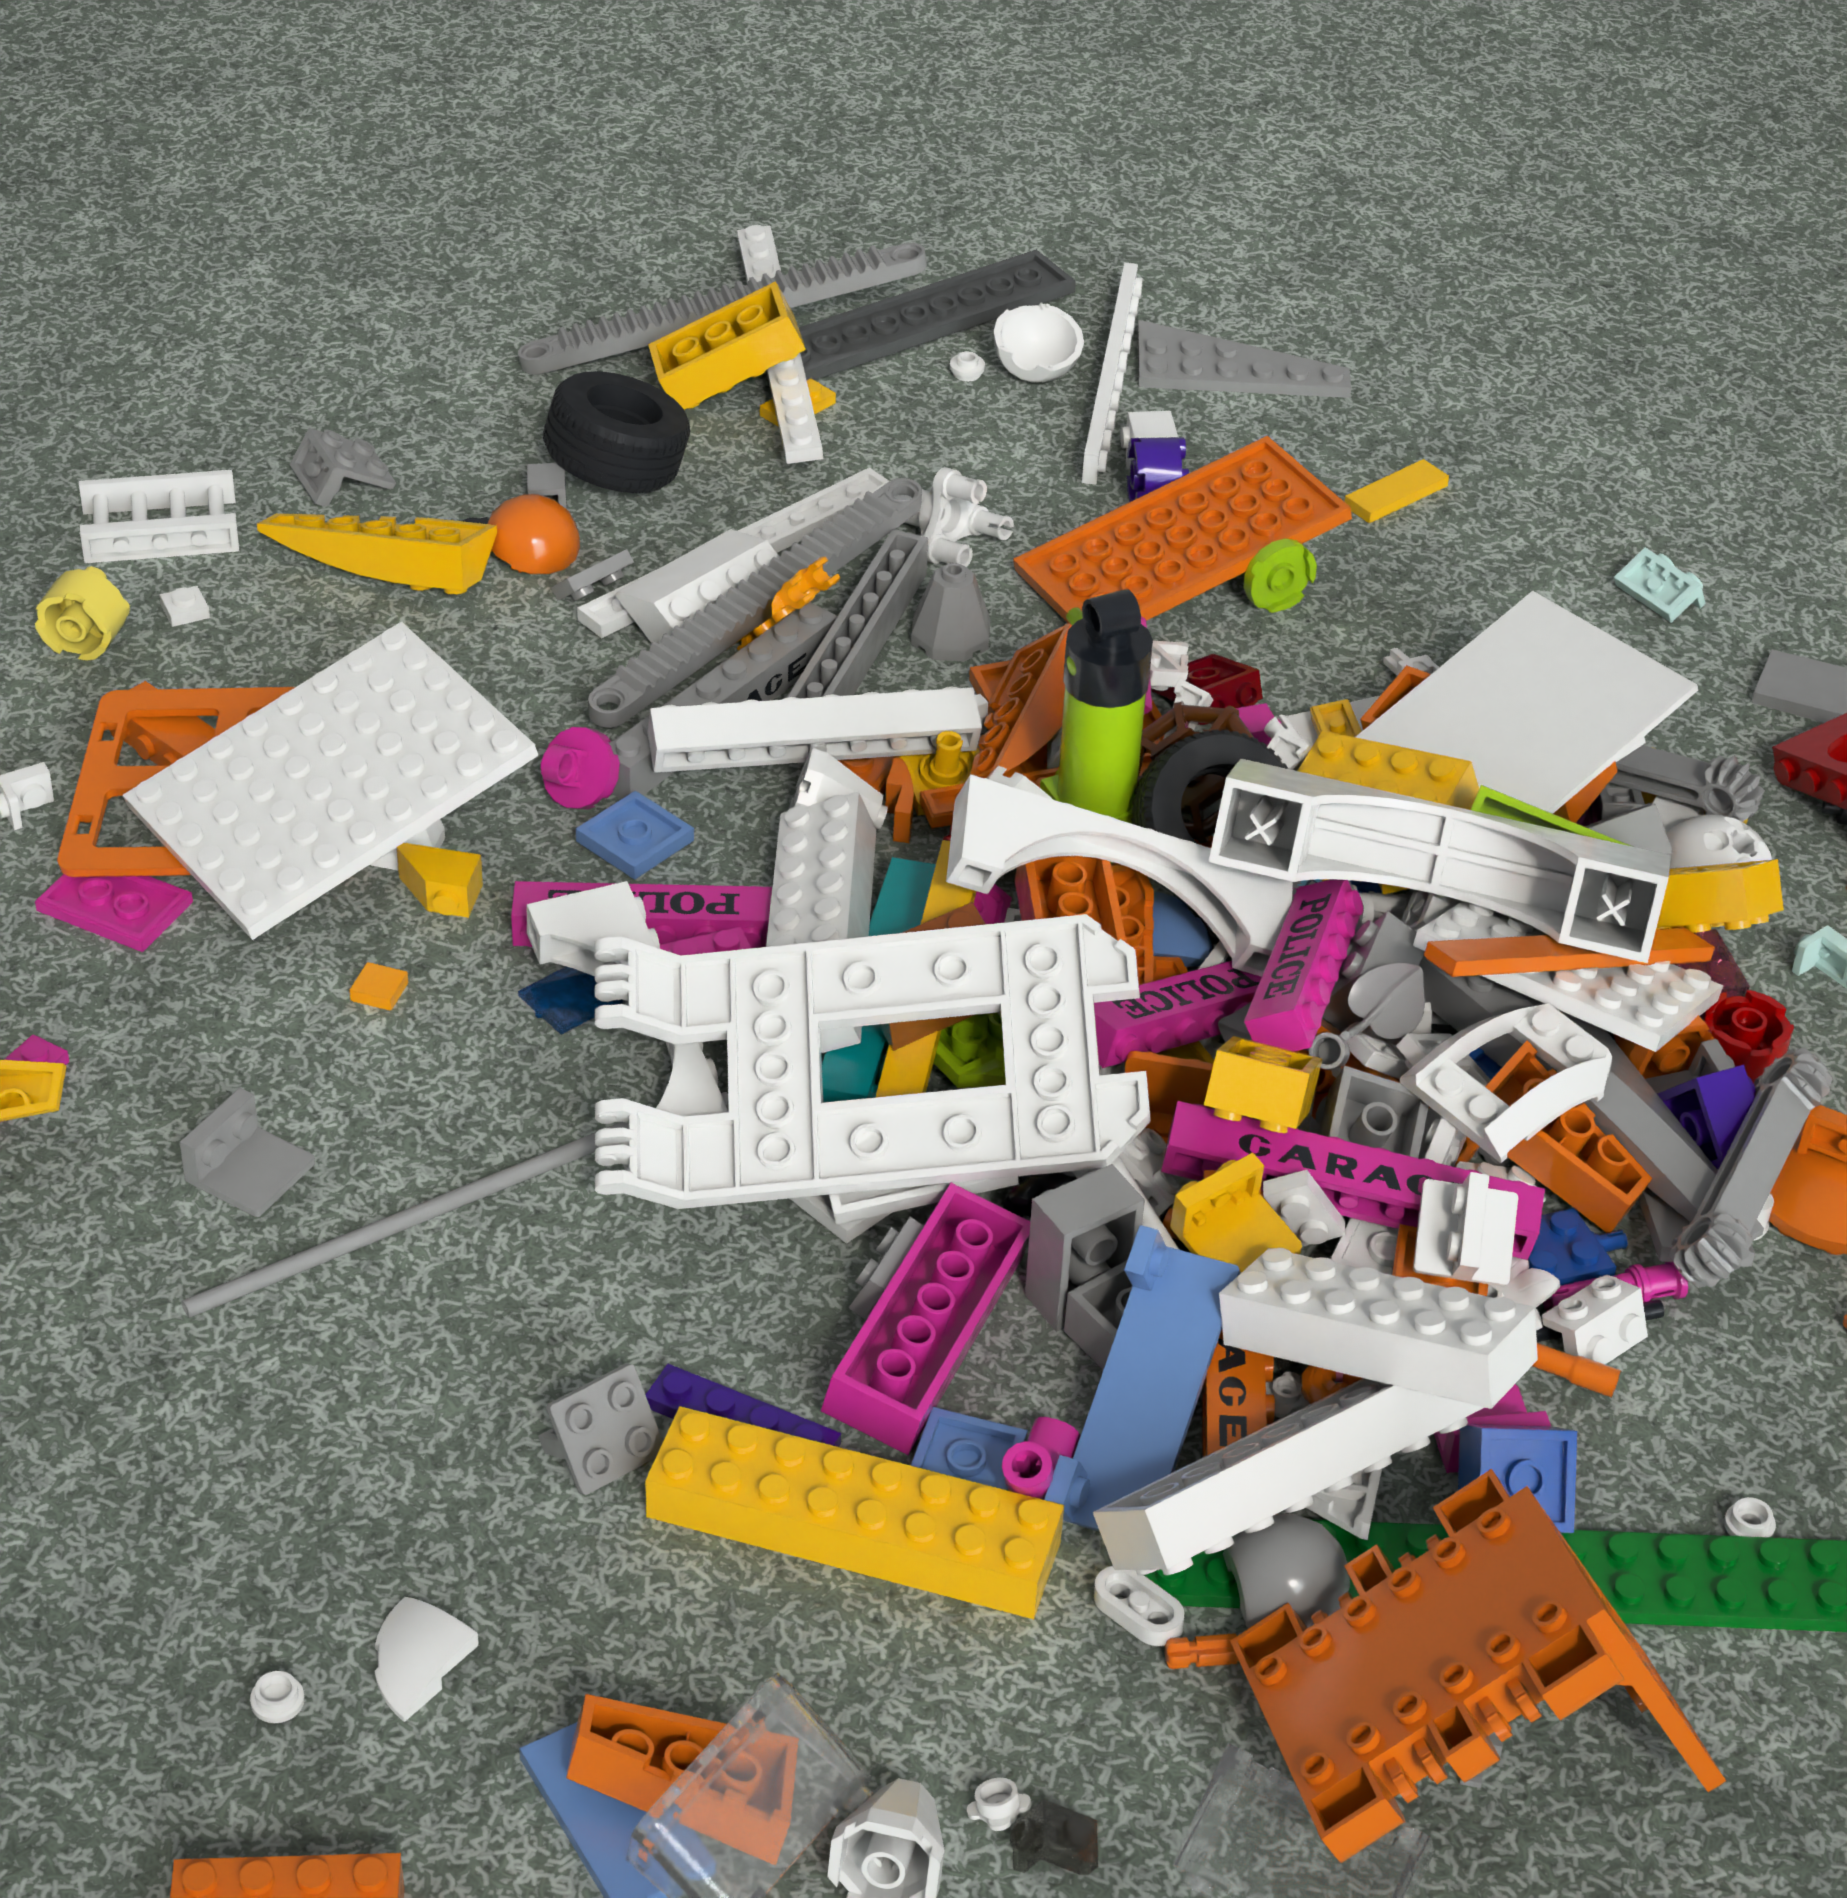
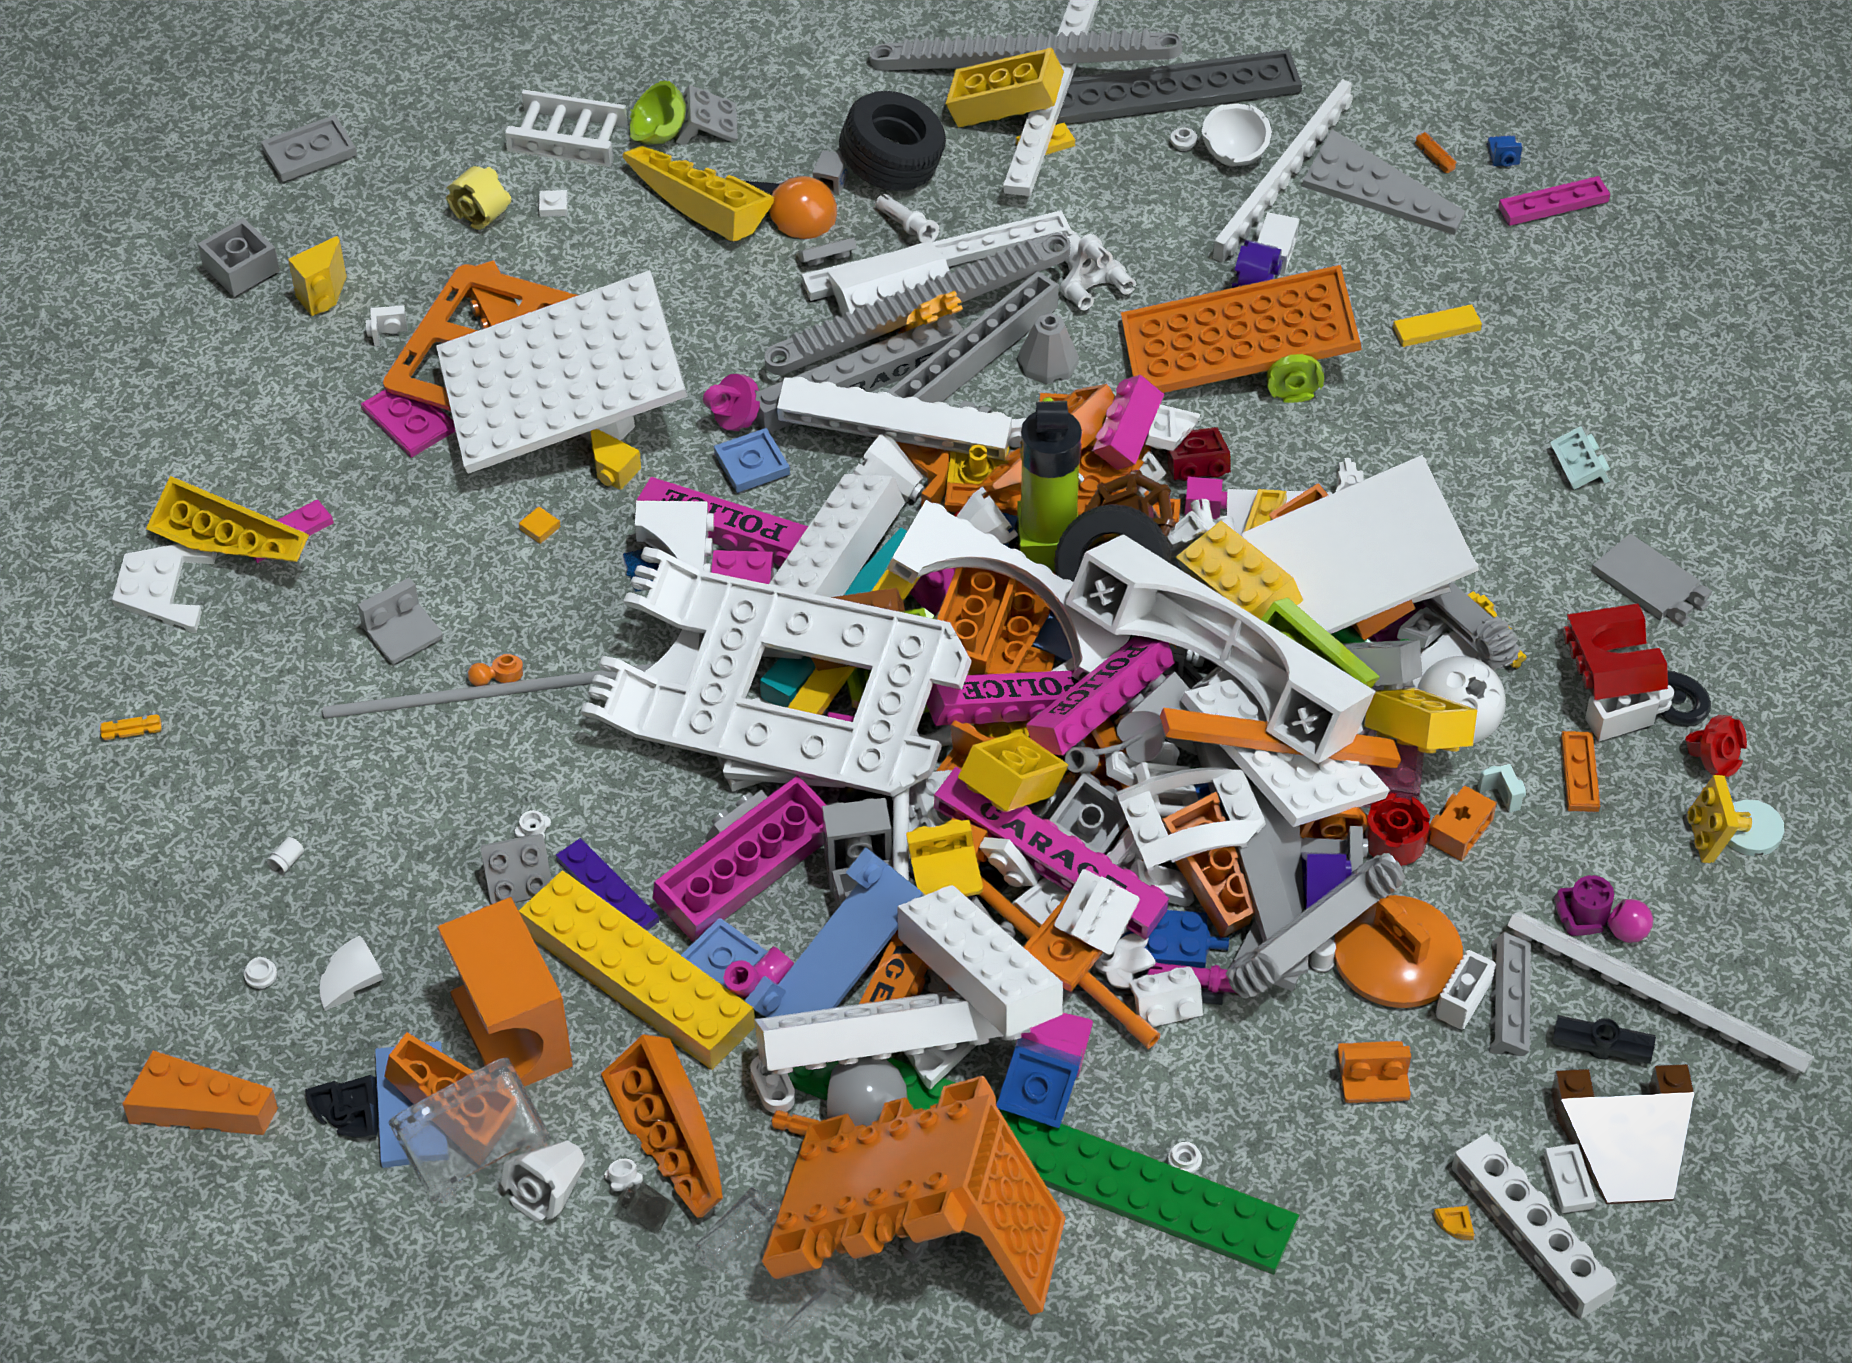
camera: 25 degrees right, 10 degrees up
(231, 1515) = (285, 855): none -> white piece
(281, 469) = (658, 114): none -> lime cylinder
(430, 1178) = (504, 669): none -> orange plate
(518, 1848) = (347, 1106): none -> black brick
(584, 1358) = (532, 818): none -> white plate
(691, 517) = (912, 221): none -> white pin
(717, 1589) = (507, 992): none -> orange piece
(1018, 1704) = (667, 1118): none -> orange wedge
(1273, 319) = (1435, 152): none -> orange axle
(1351, 301) = (1504, 150): none -> blue bracket
(1442, 337) = (1554, 200): none -> dark pink plate
(1813, 1007) = (1462, 822): none -> orange brick

